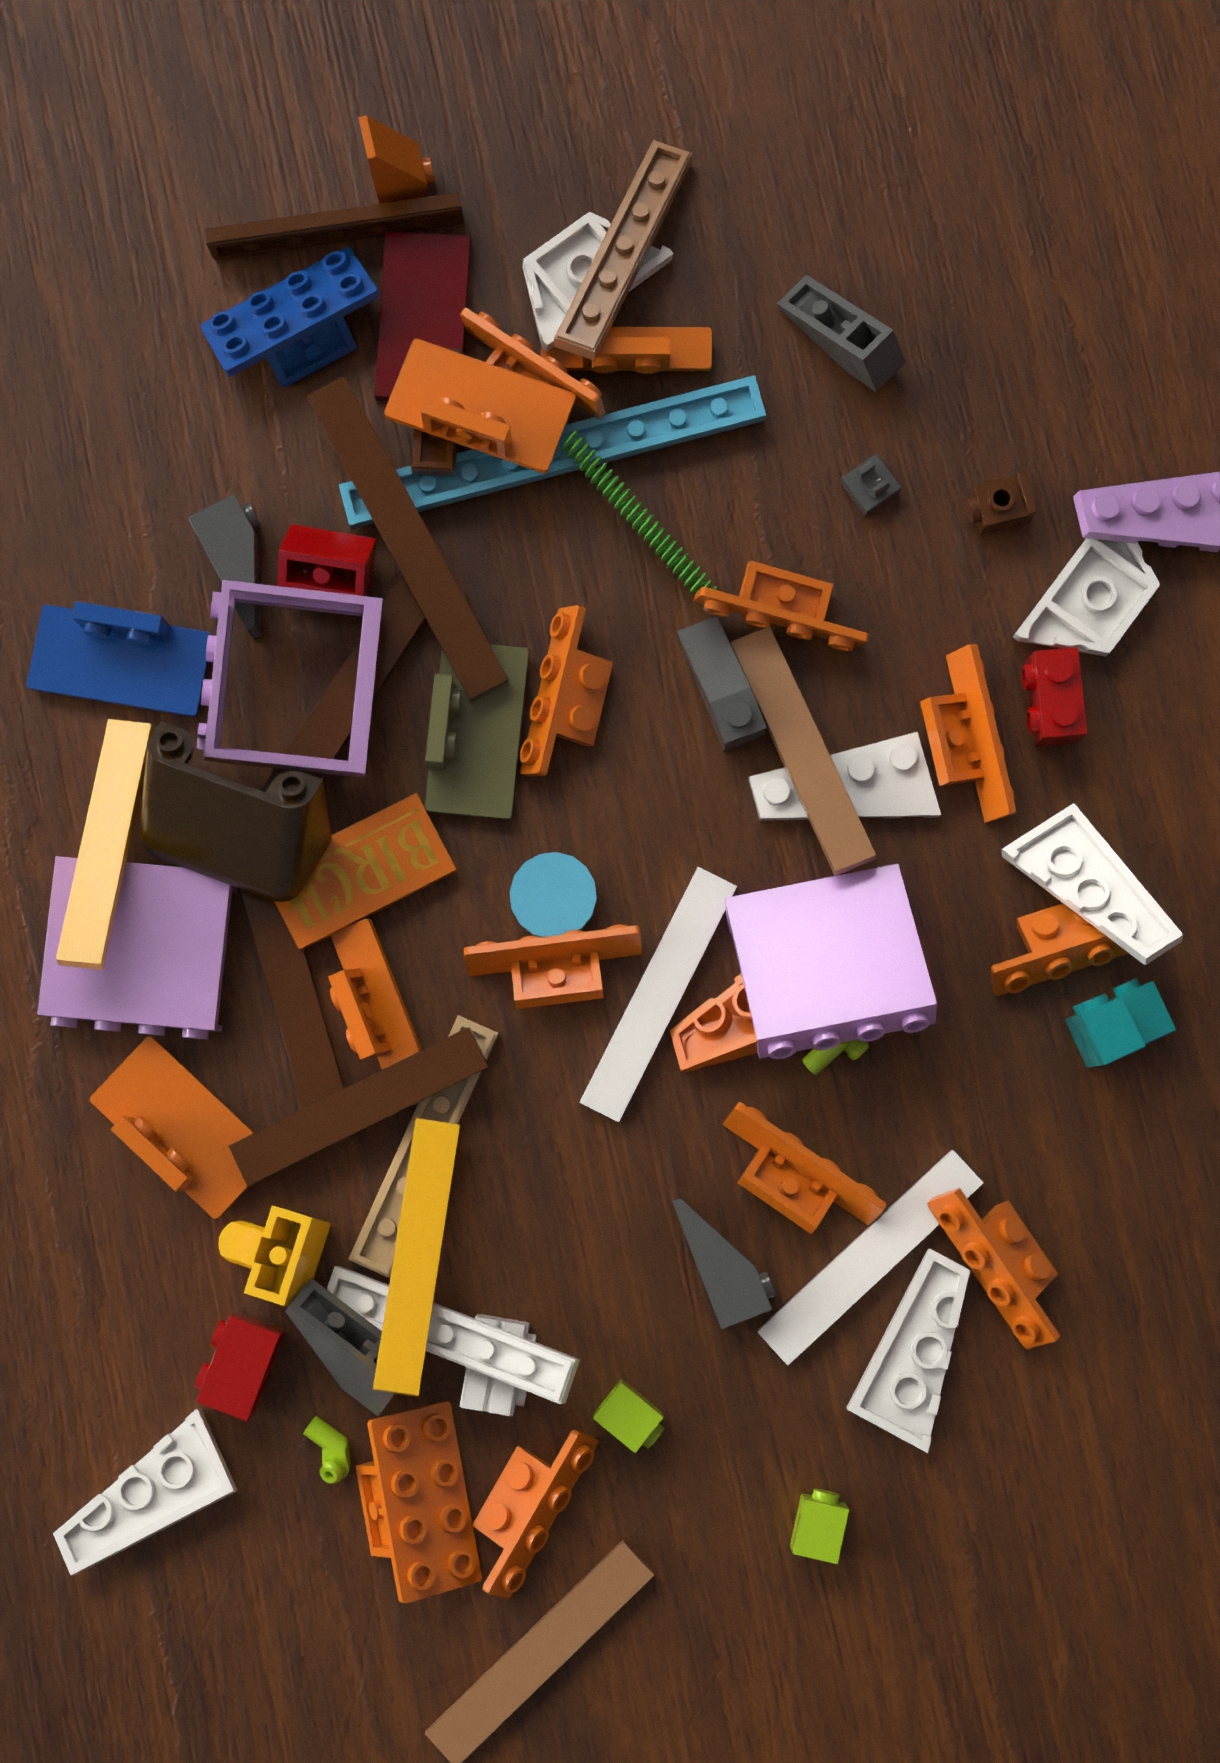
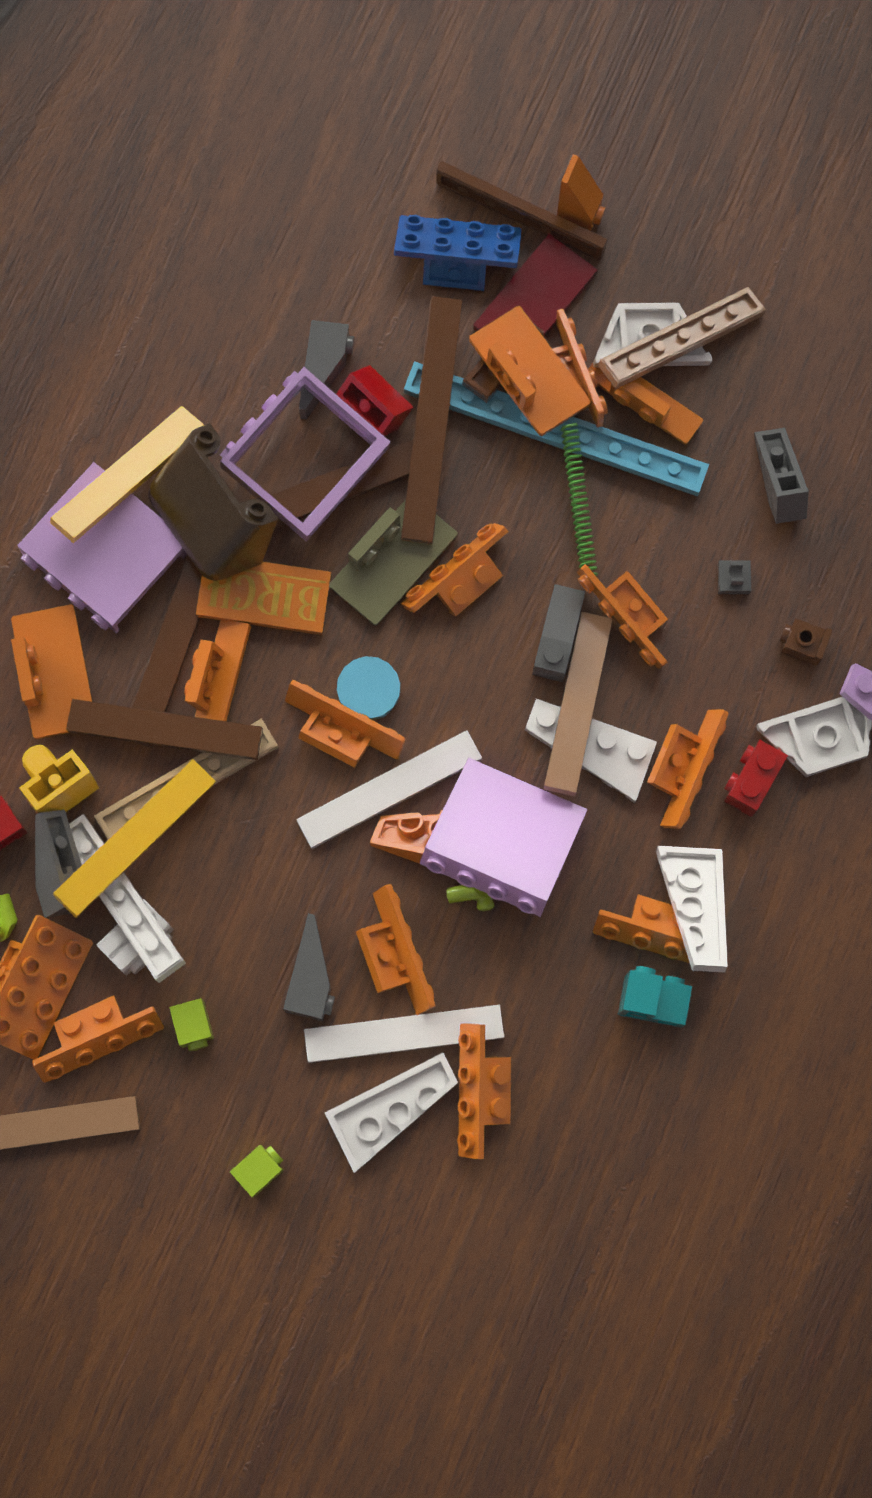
camera: 30 degrees right, 5 degrees down
(119, 658) = (212, 374): blue bracket -> none

